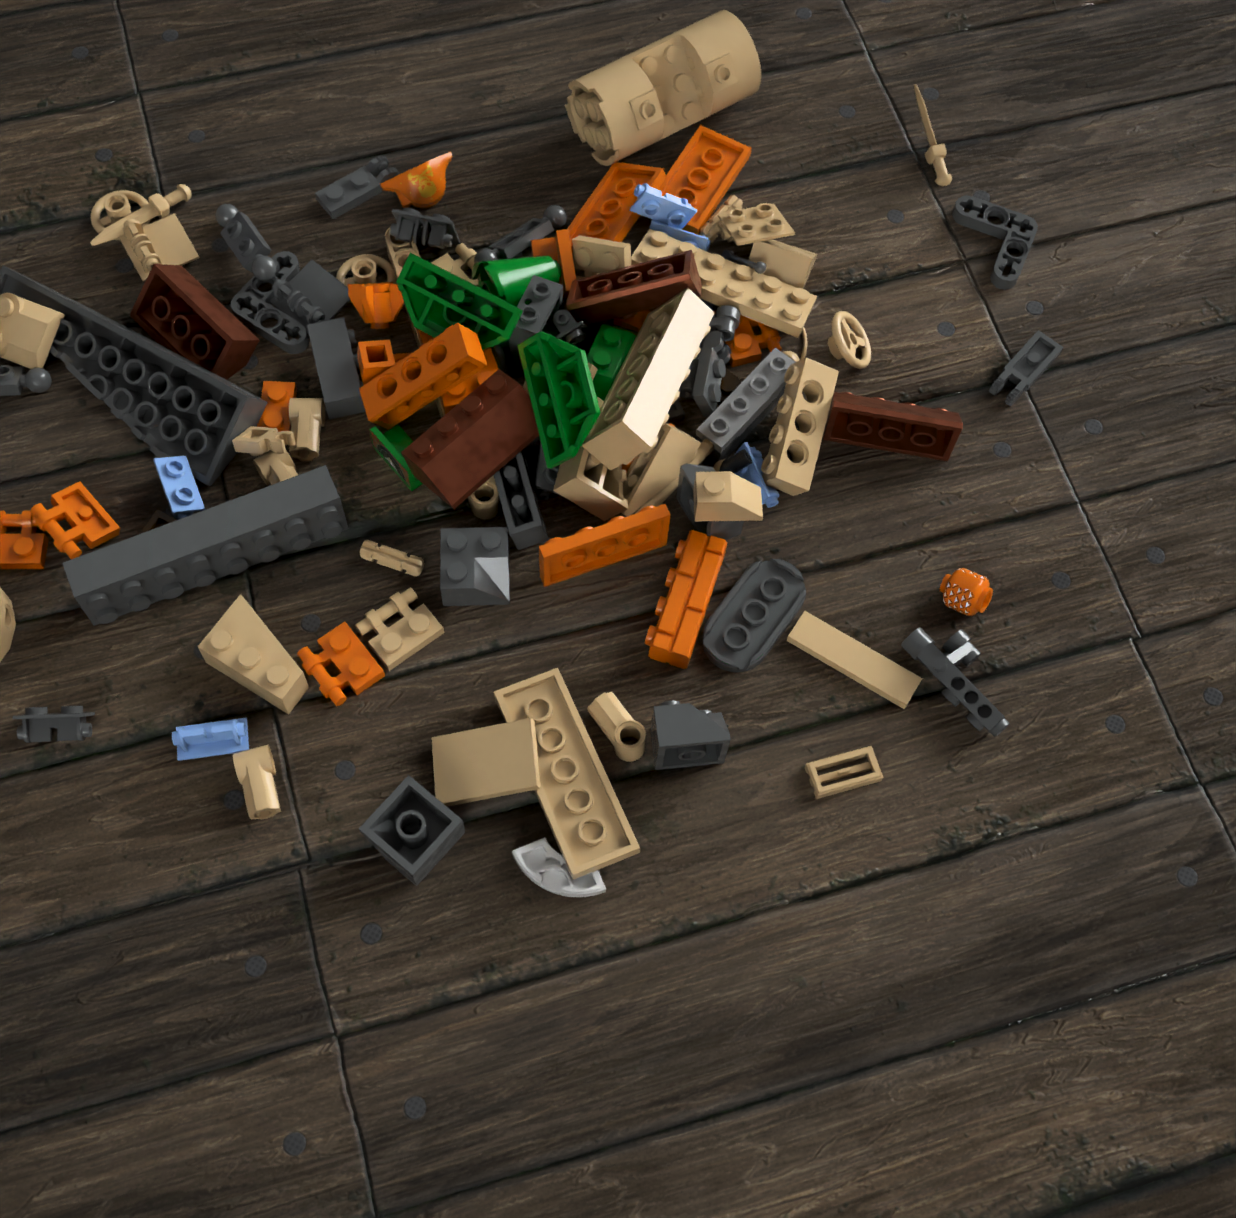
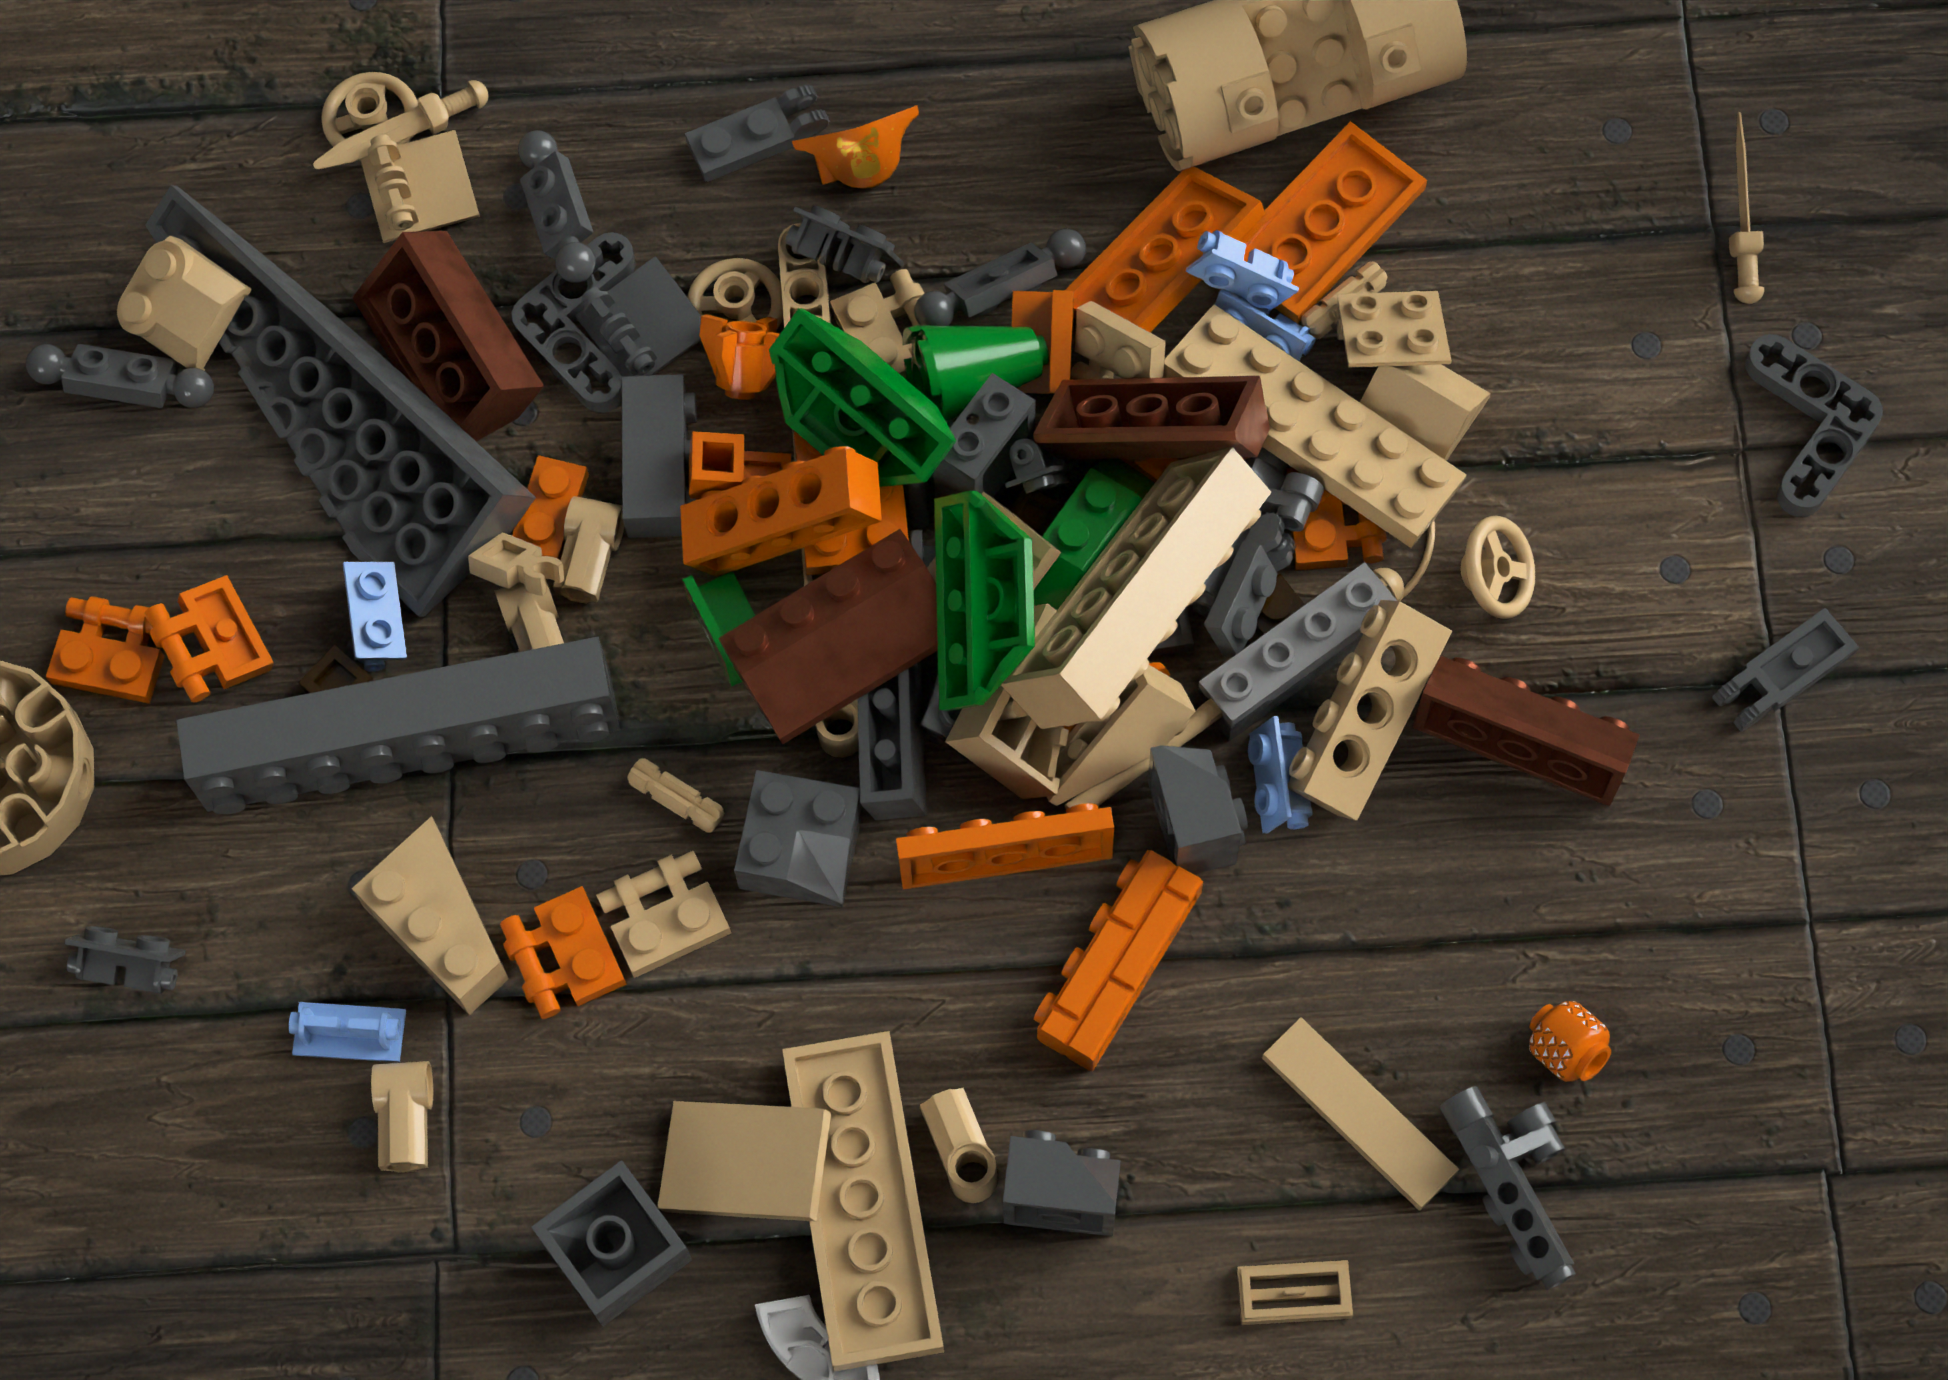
camera: 20 degrees right, 5 degrees up
(726, 498) = (1206, 822): tan slope -> none
(733, 463) = (1238, 752): black arm -> none
(754, 615) = (1221, 1006): dark grey tile -> none
(759, 267) = (1339, 371): dark grey hinge -> none

